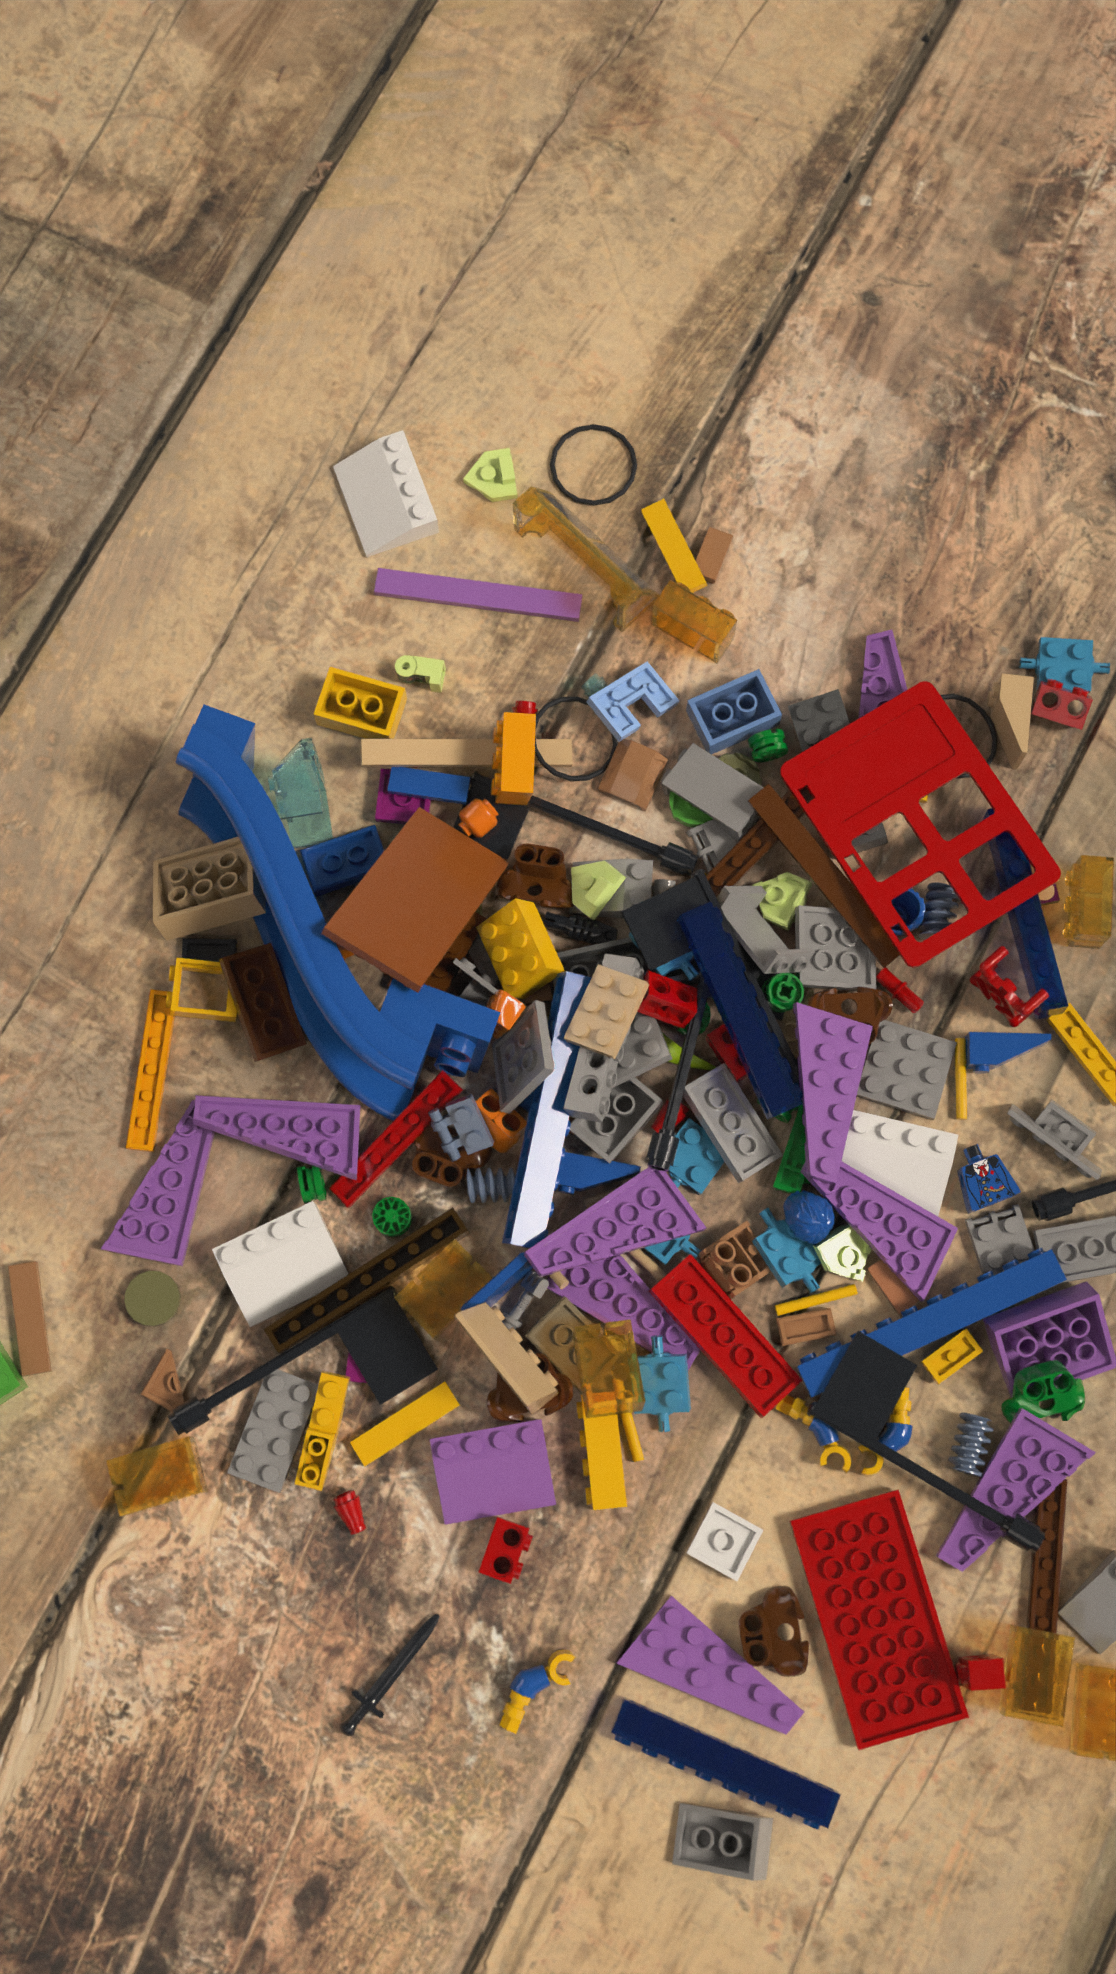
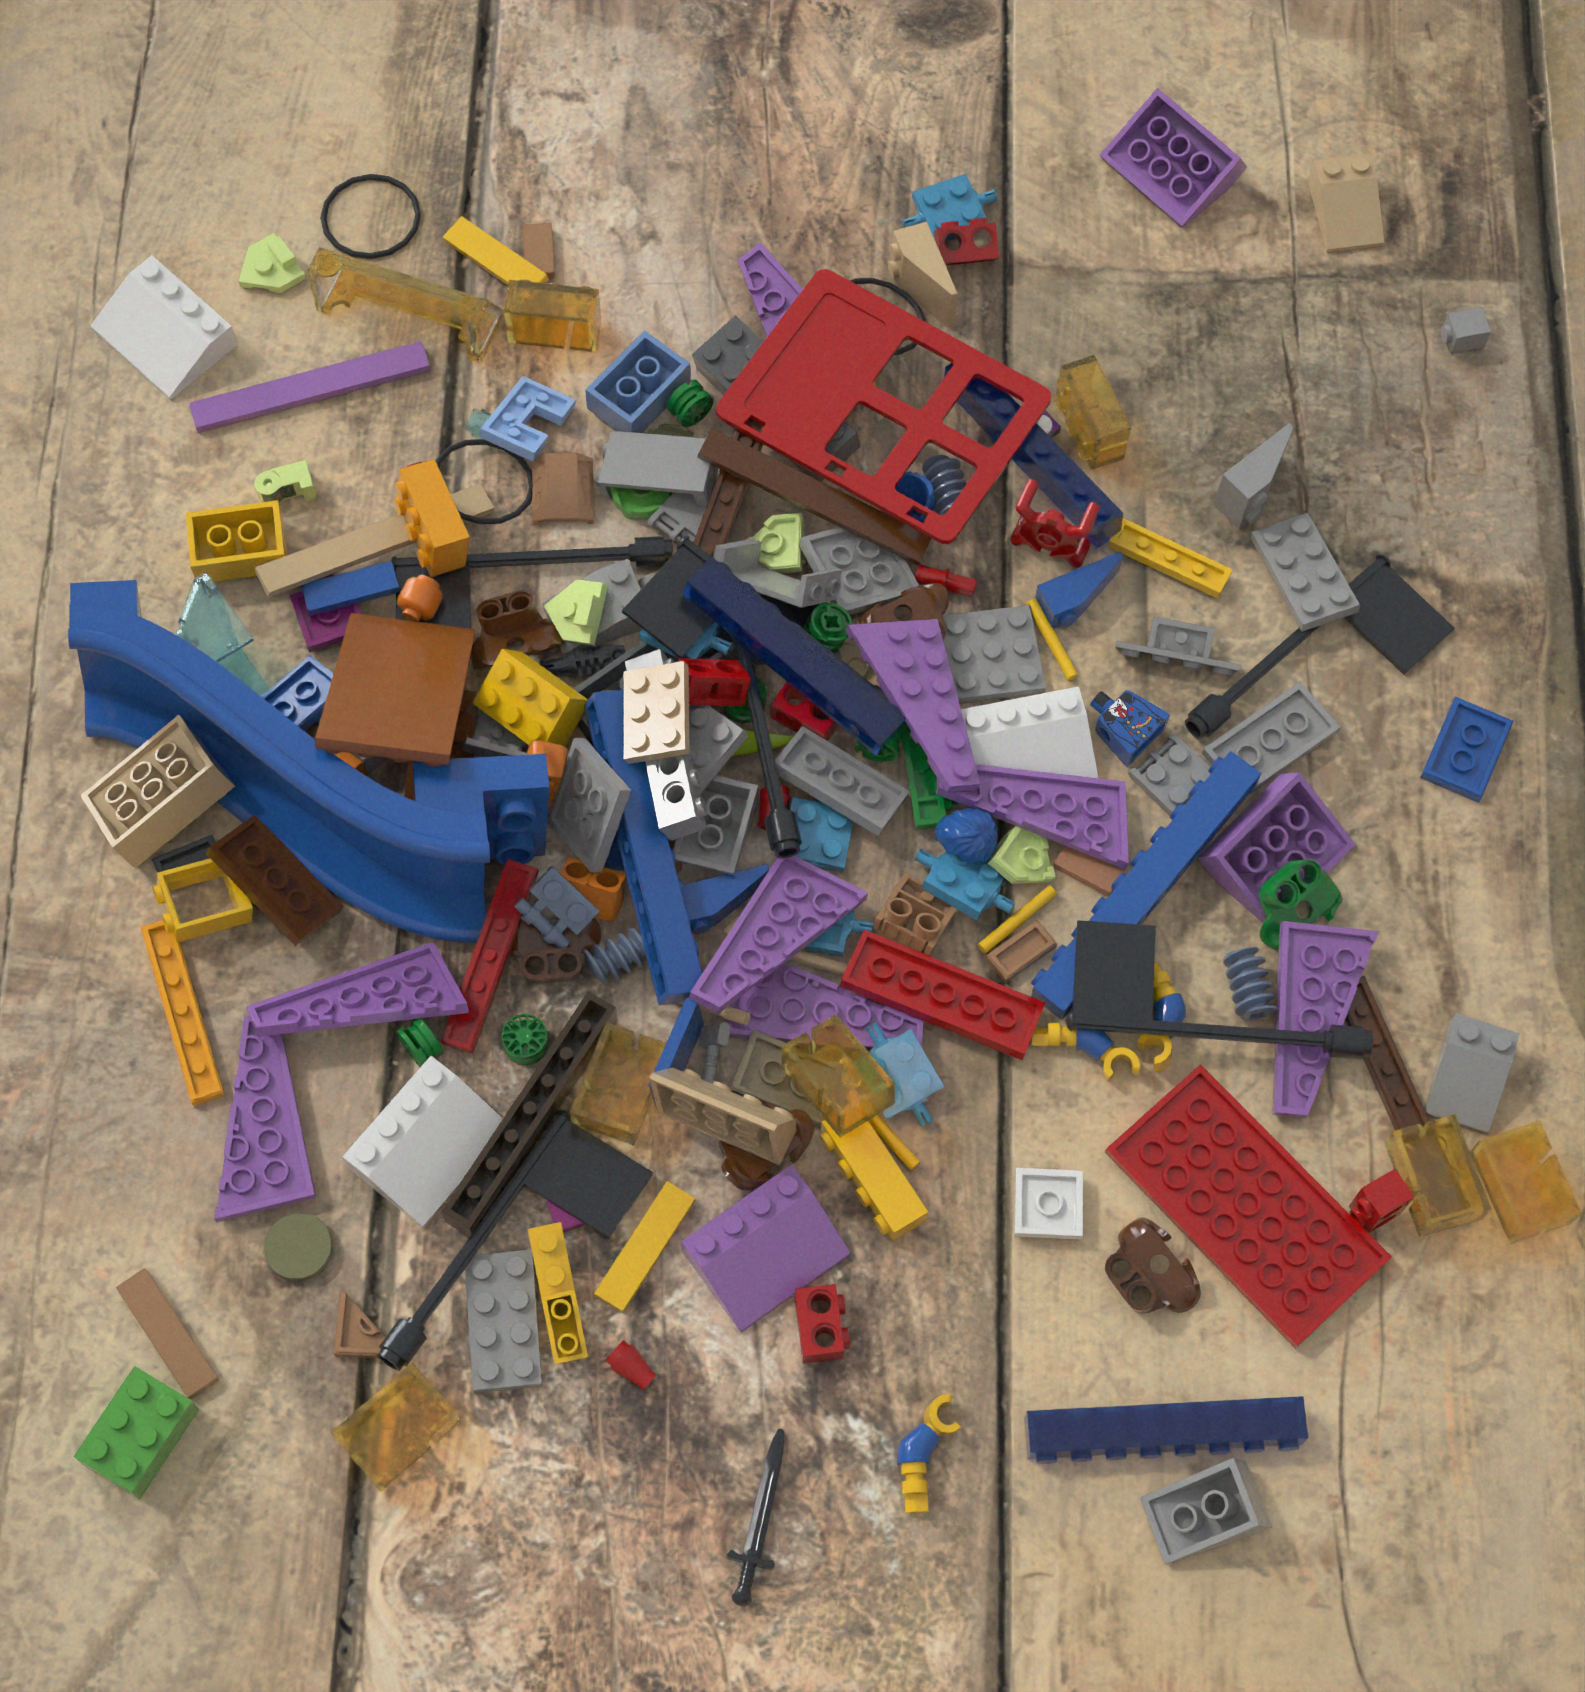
camera: 30 degrees left, 10 degrees down
(695, 1660) = (1084, 1341): medium lavender wing -> none
(951, 1356) = (1184, 909): yellow plate -> none

